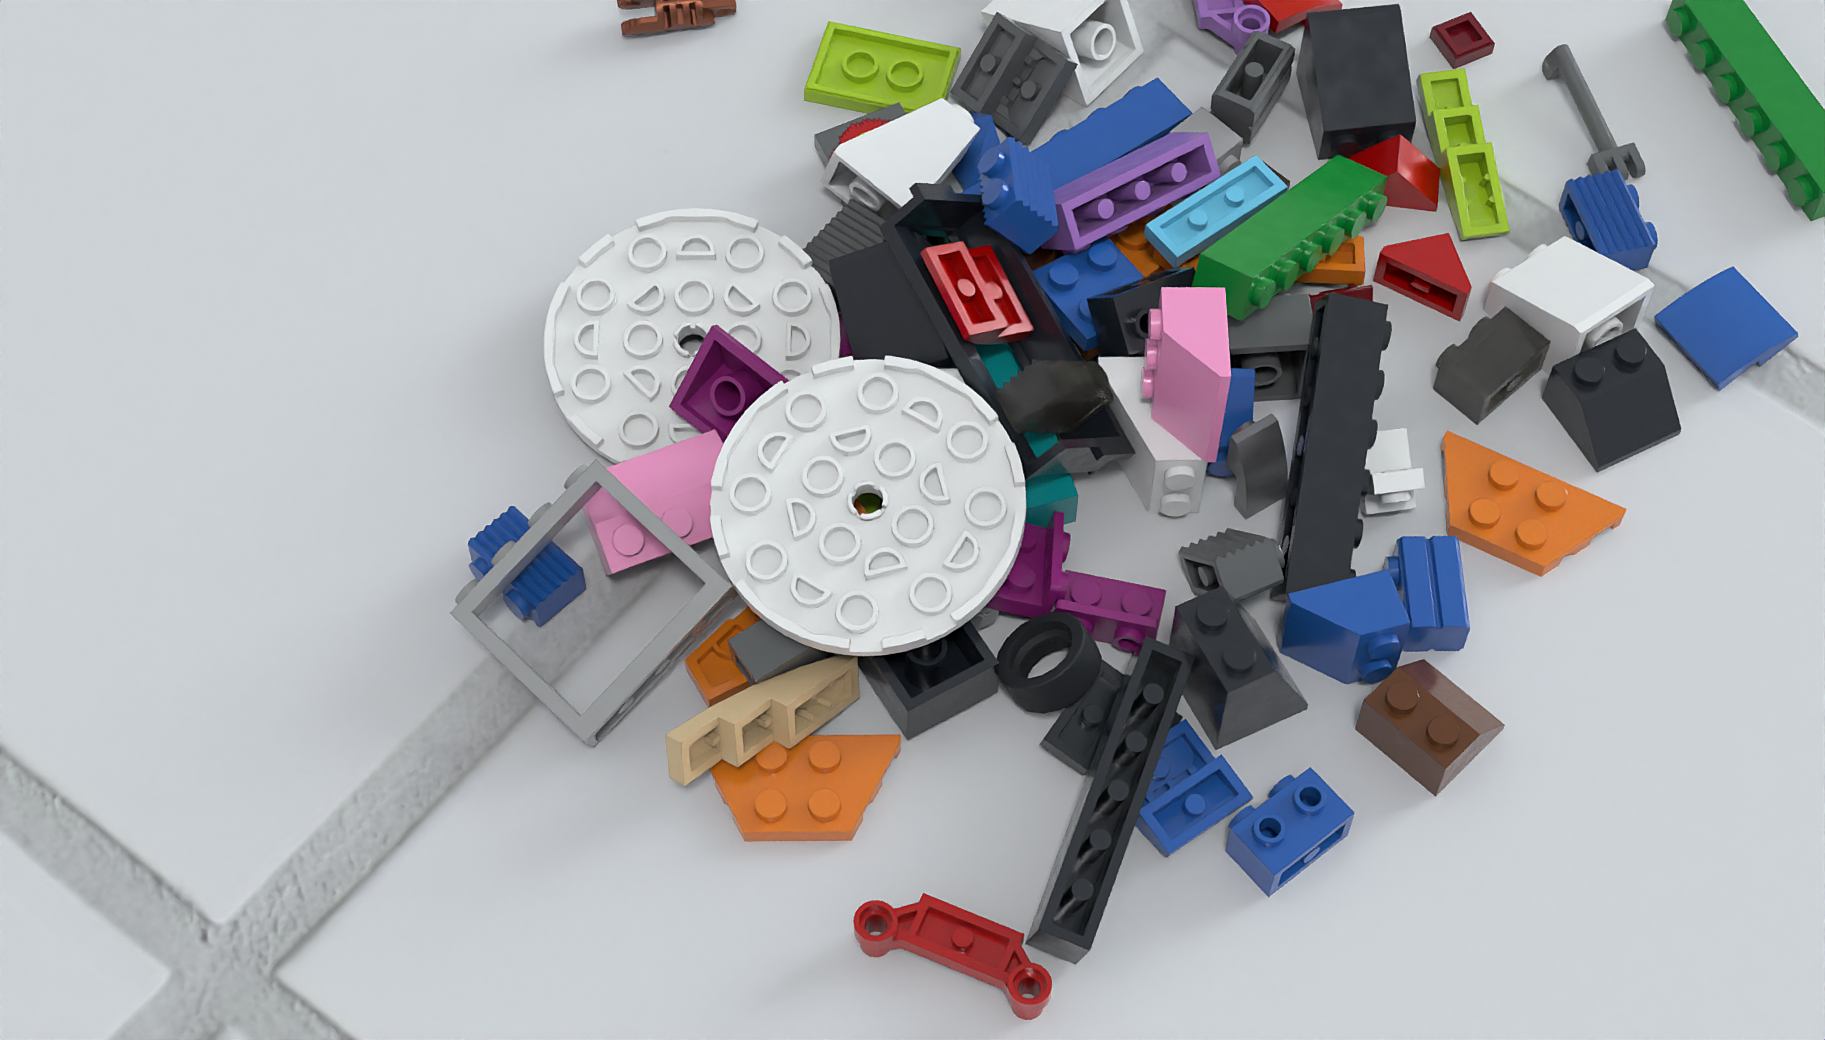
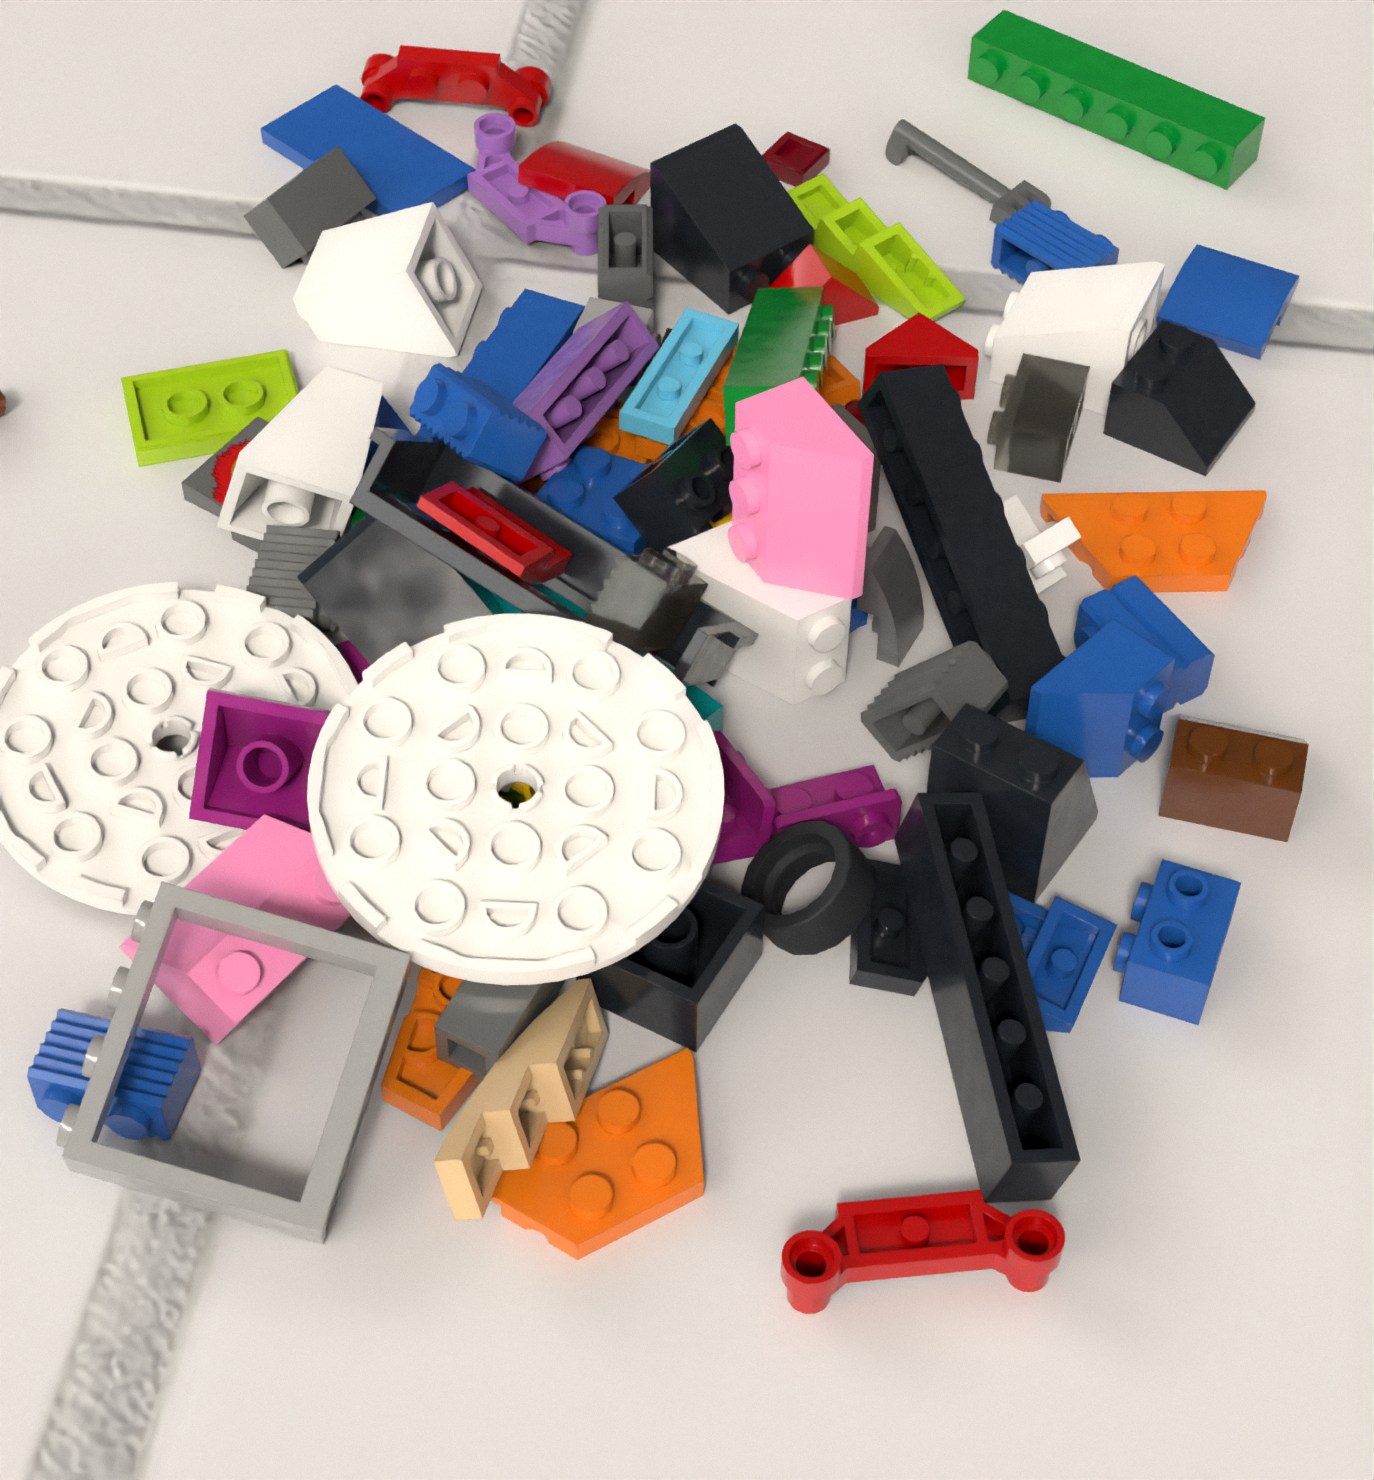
camera: 30 degrees left, 10 degrees down
(1013, 78) = (373, 335): dark grey slope -> none

